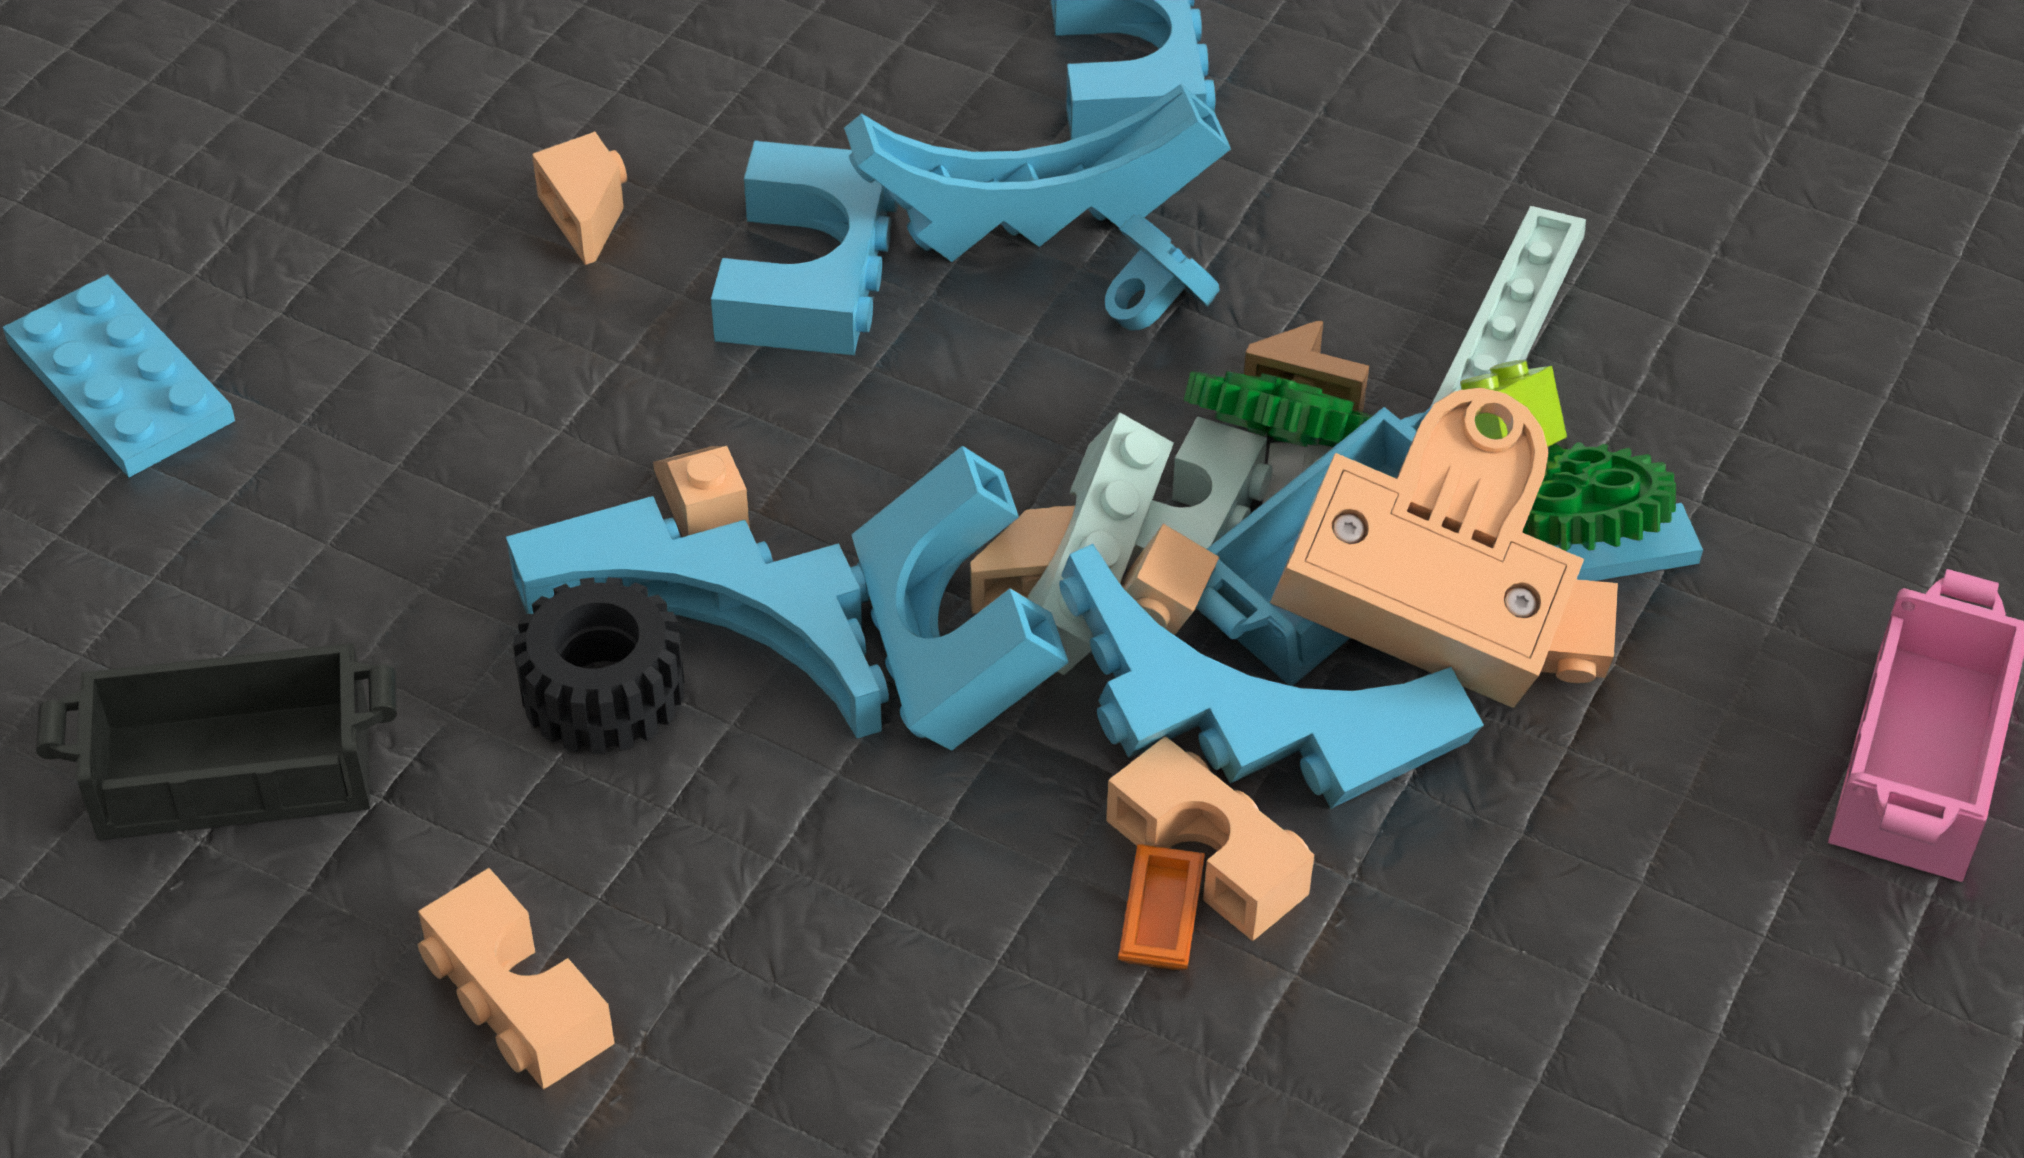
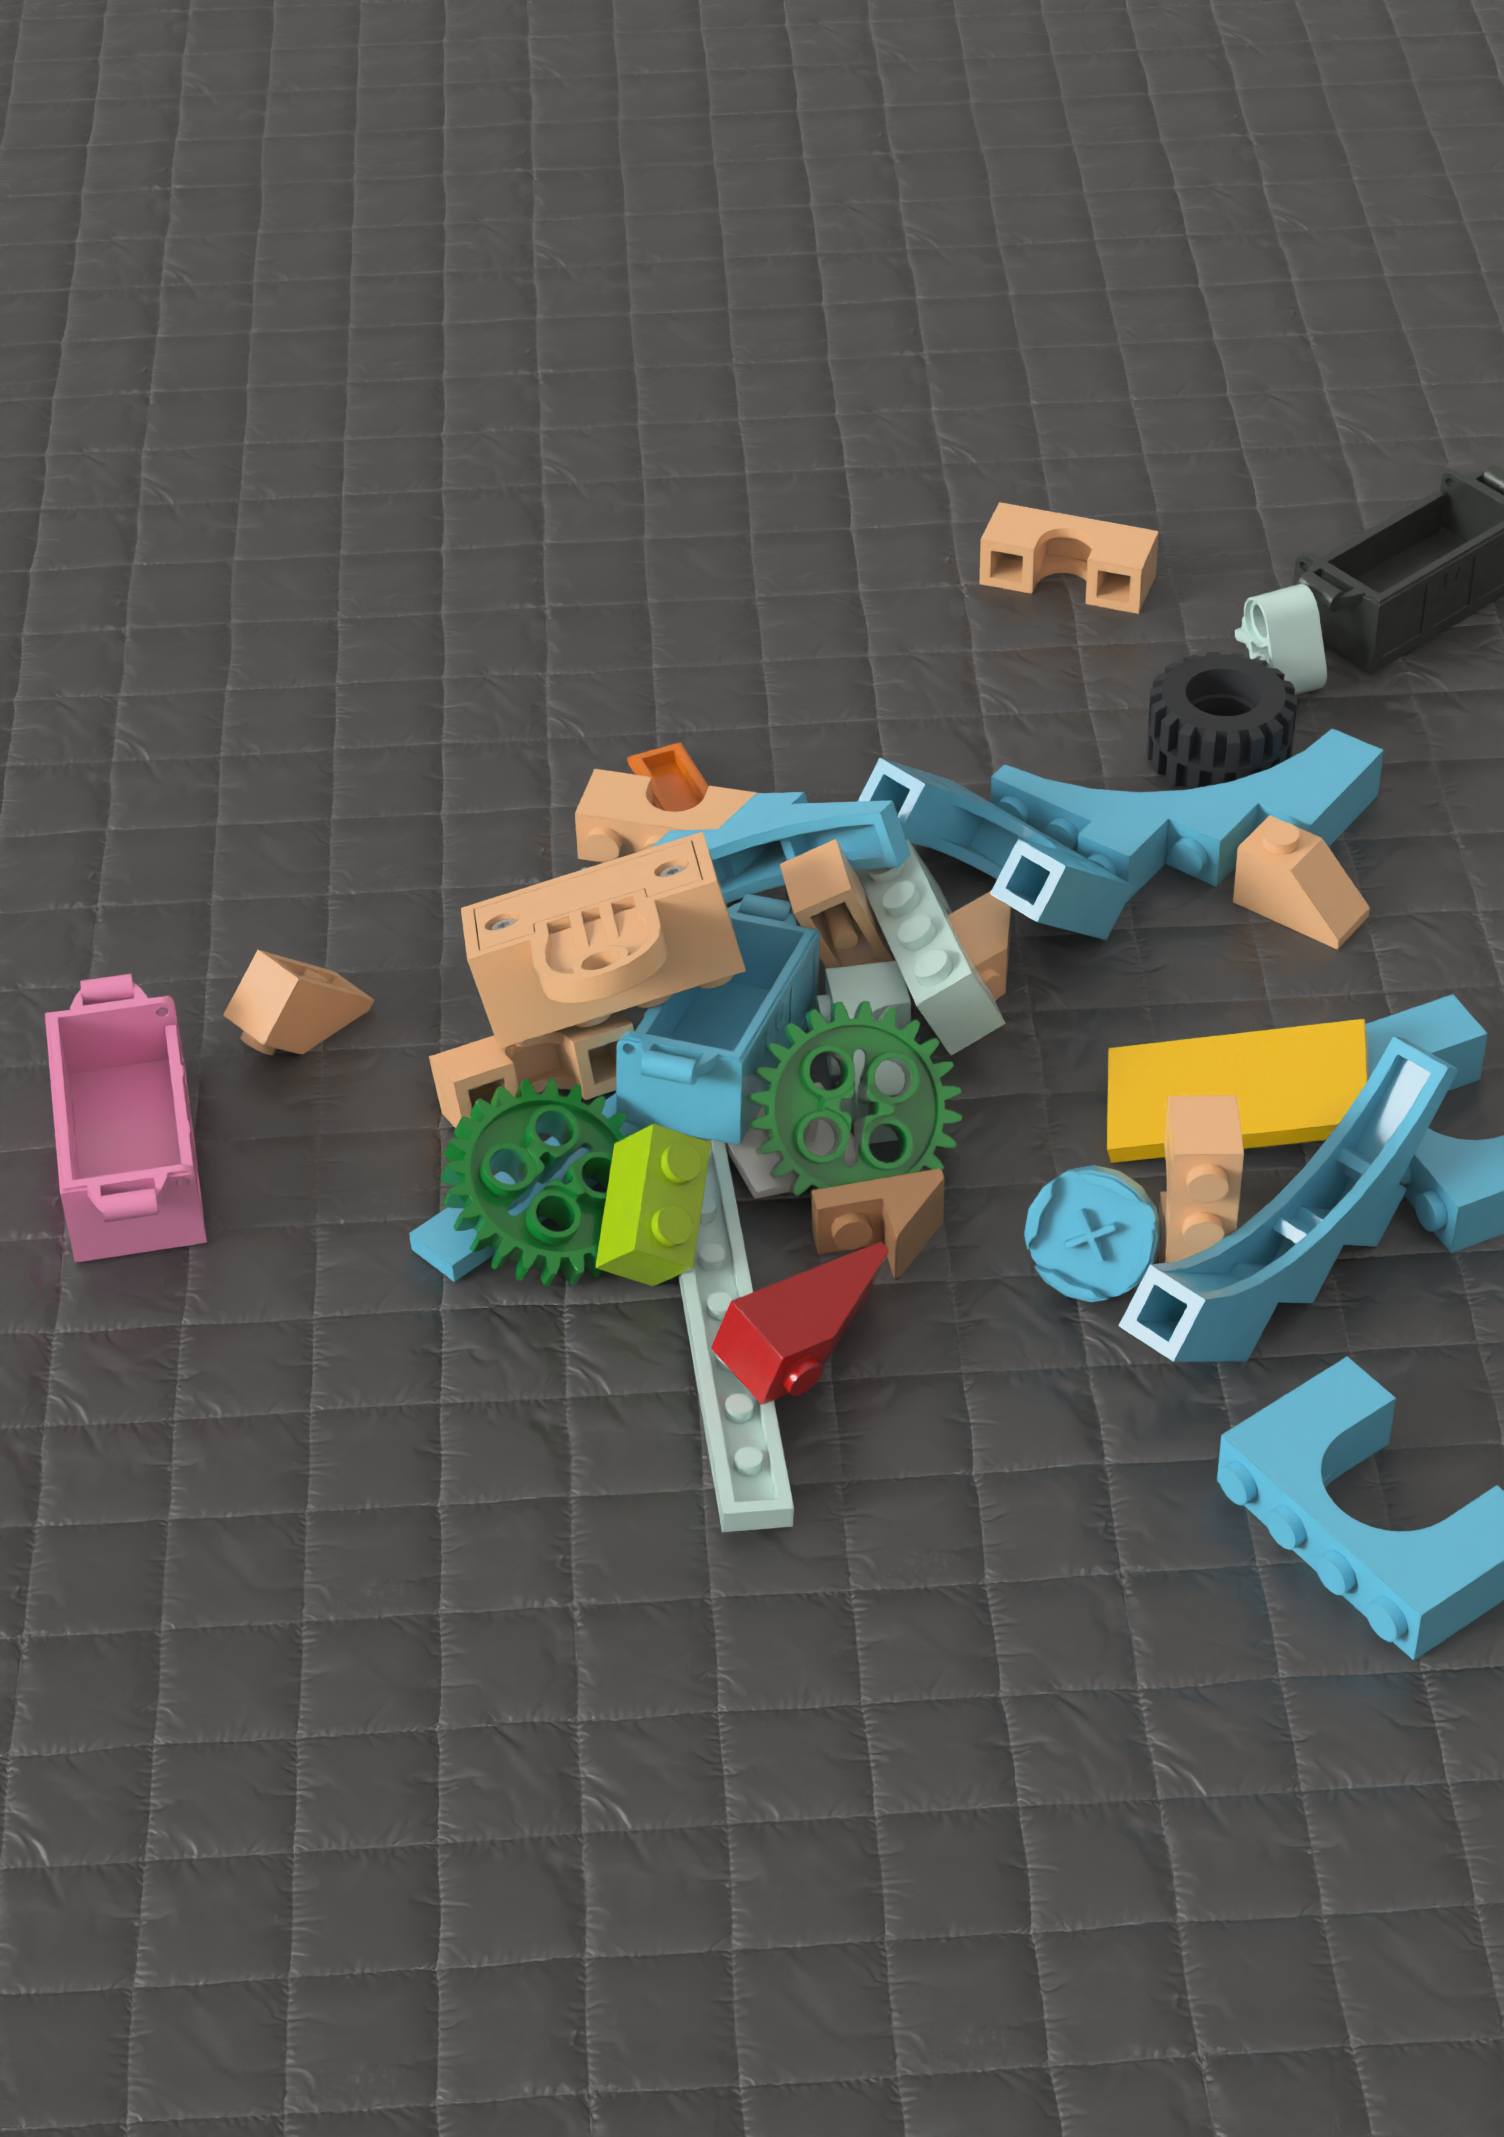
camera: 150 degrees right, 5 degrees down
(447, 717) = (1287, 635): none -> light aqua beam
(950, 320) = (1286, 1082): none -> yellow tile
(1092, 175) = (1202, 1174): none -> light nougat arch
(1434, 298) = (789, 1329): none -> red slope
(1698, 810) = (292, 1004): none -> light nougat slope

